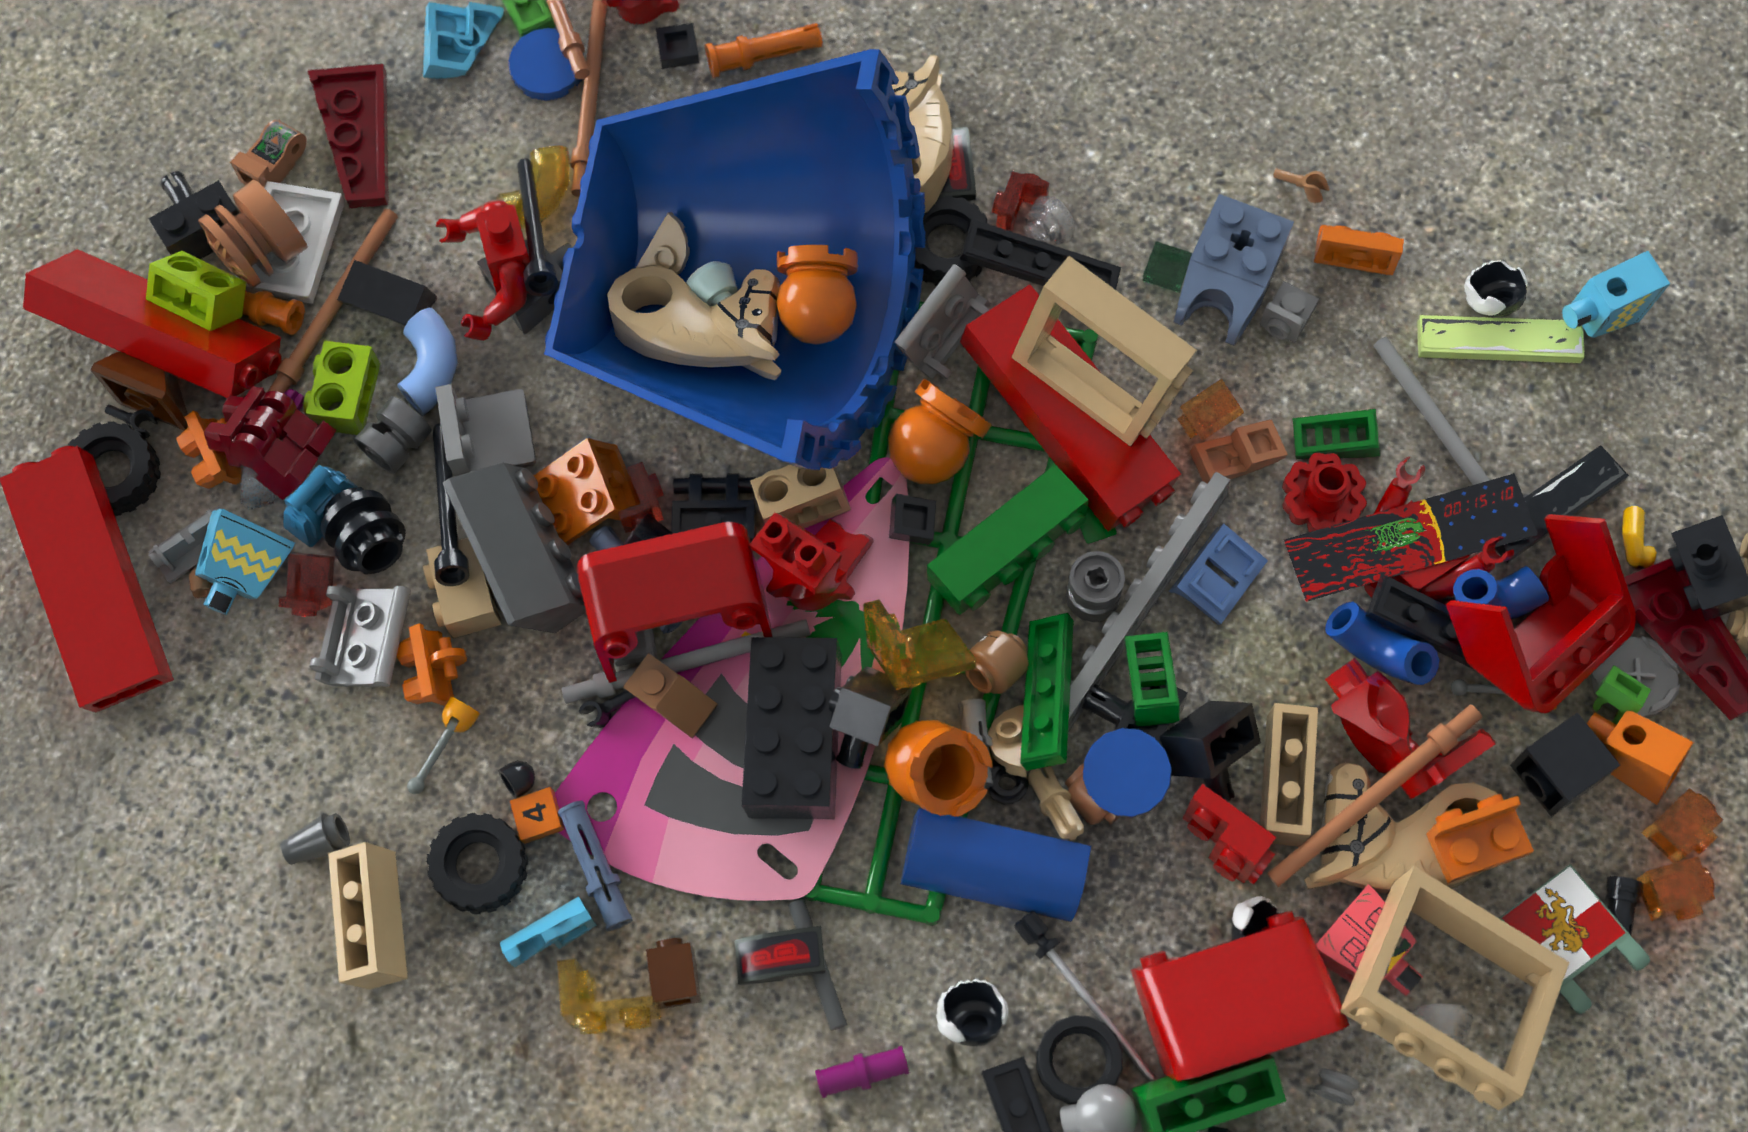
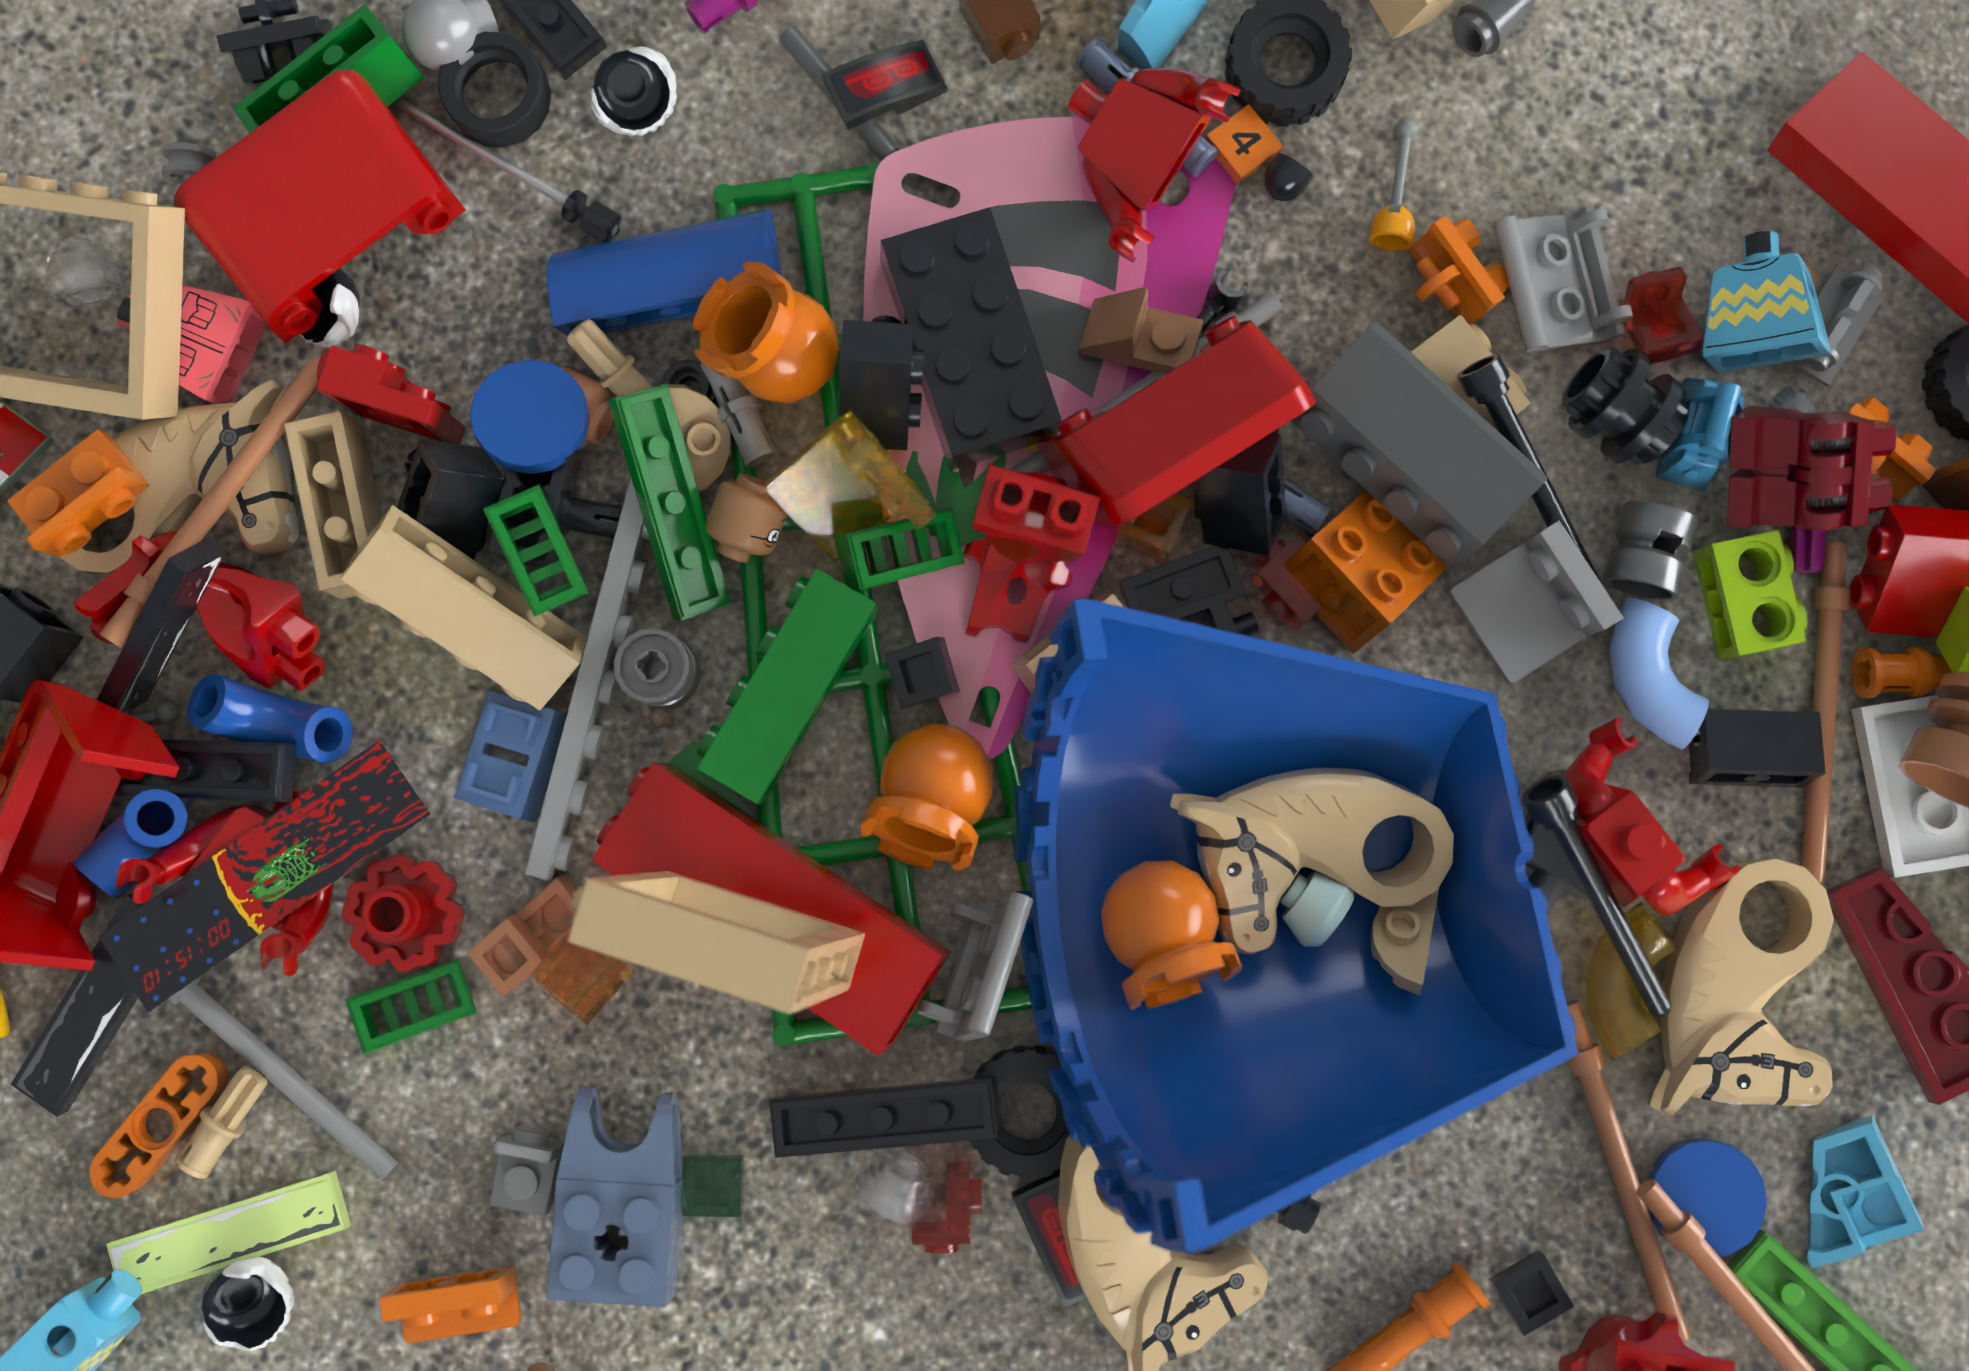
camera: 160 degrees right, 15 degrees up
(494, 140) = (1719, 981): none -> tan animal
(612, 825) = (1142, 140): none -> red torso
(916, 591) = (854, 563): none -> green slope
(1218, 659) = (464, 609): none -> tan brick
(1423, 718) = (161, 625): none -> black tile
(1486, 405) = (221, 1123): none -> tan axle
(1539, 404) = (145, 1166): none -> orange beam

